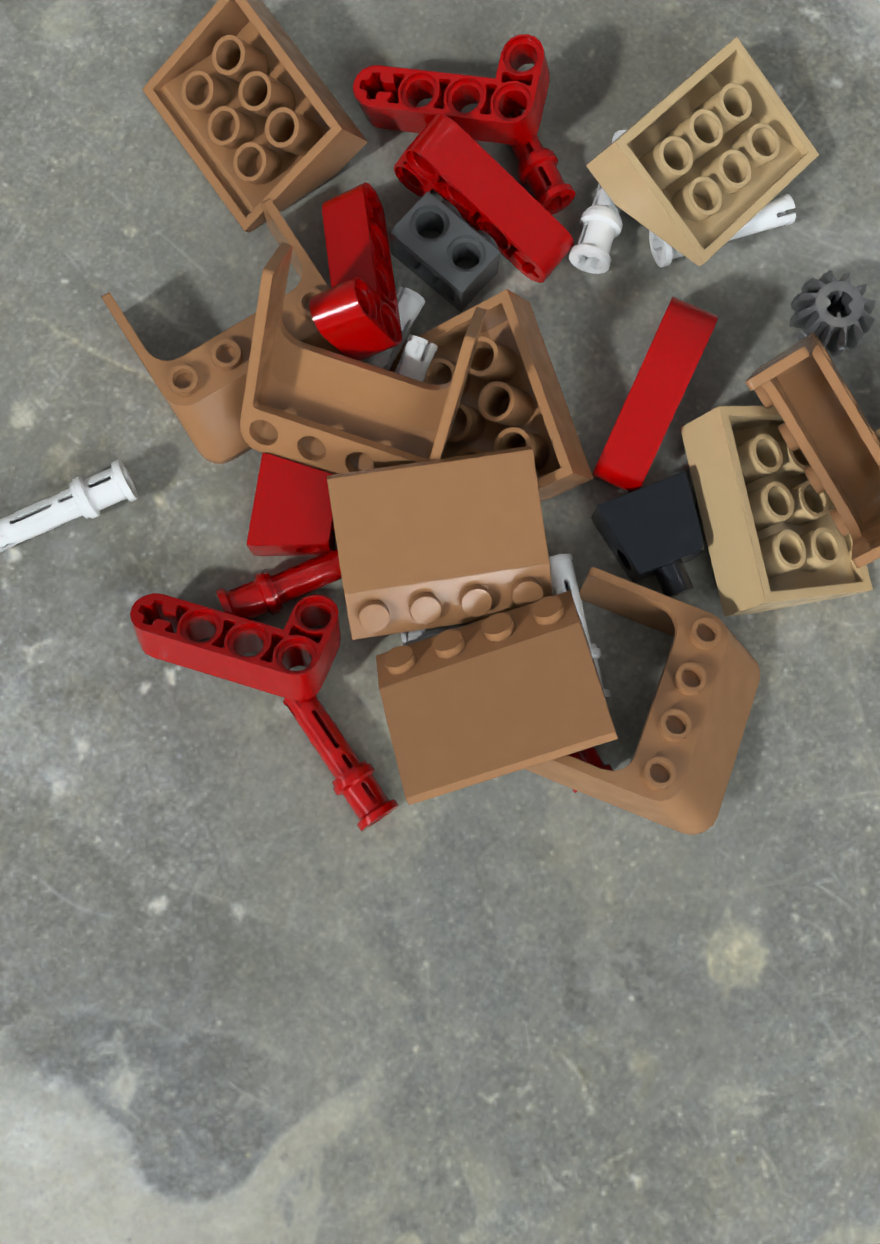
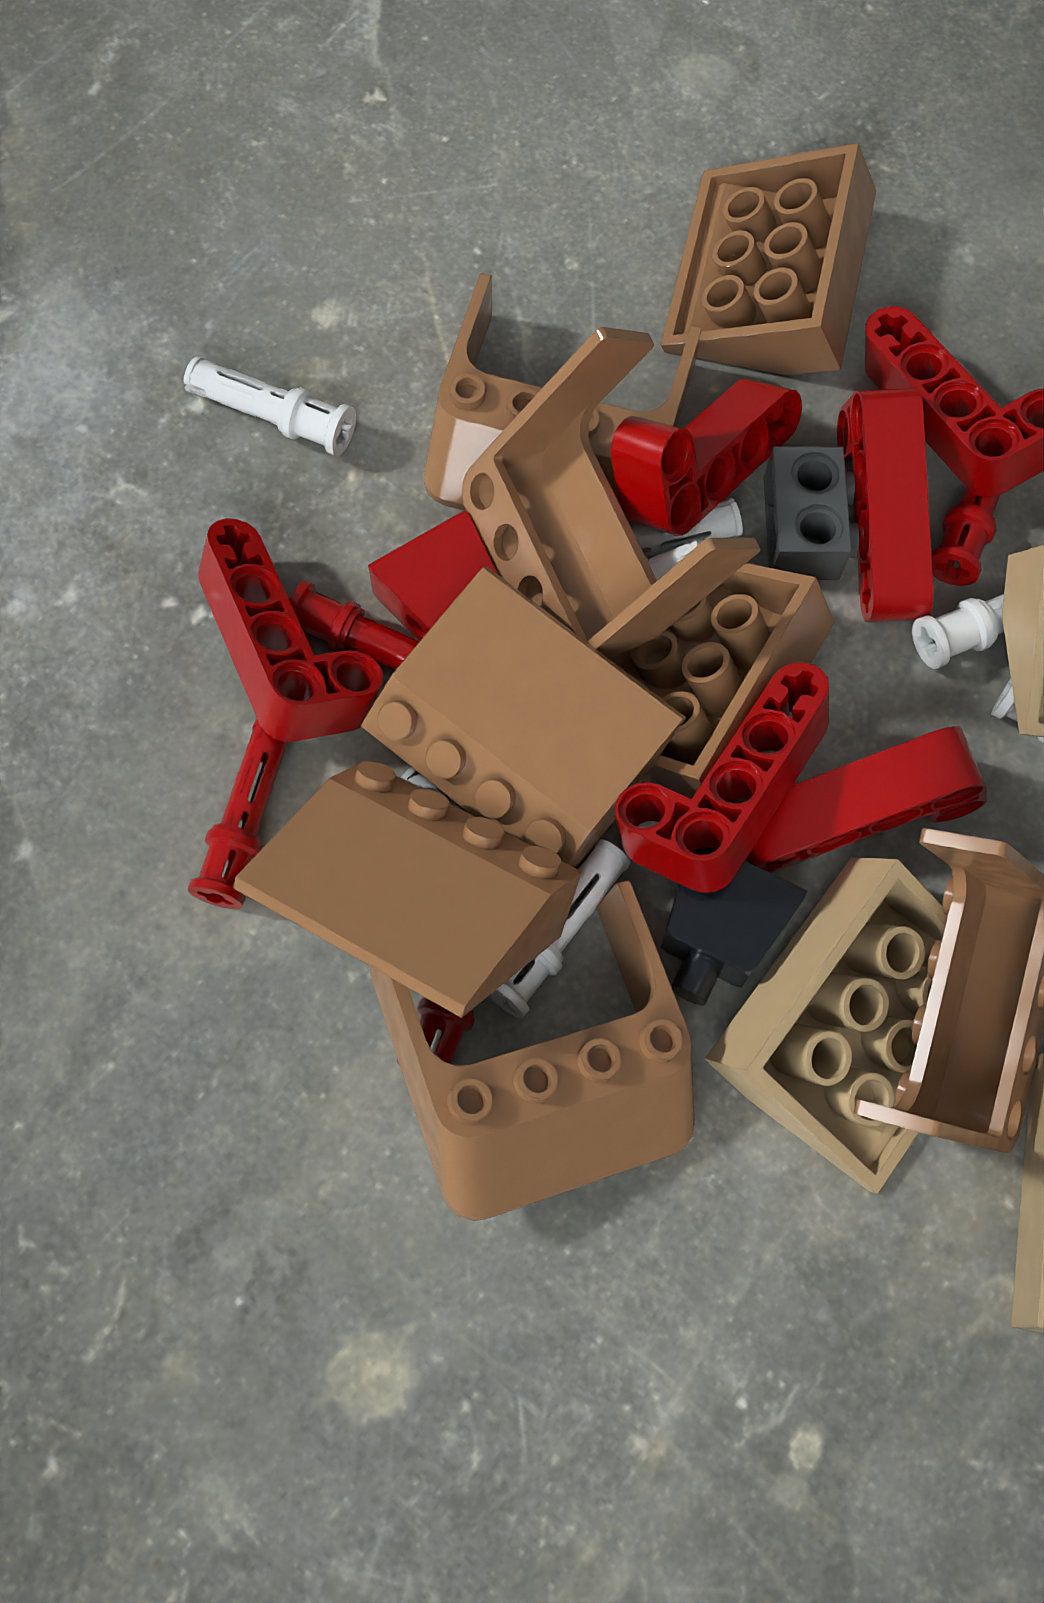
camera: 50 degrees right, 10 degrees down
(588, 444) = (738, 773): none -> red beam

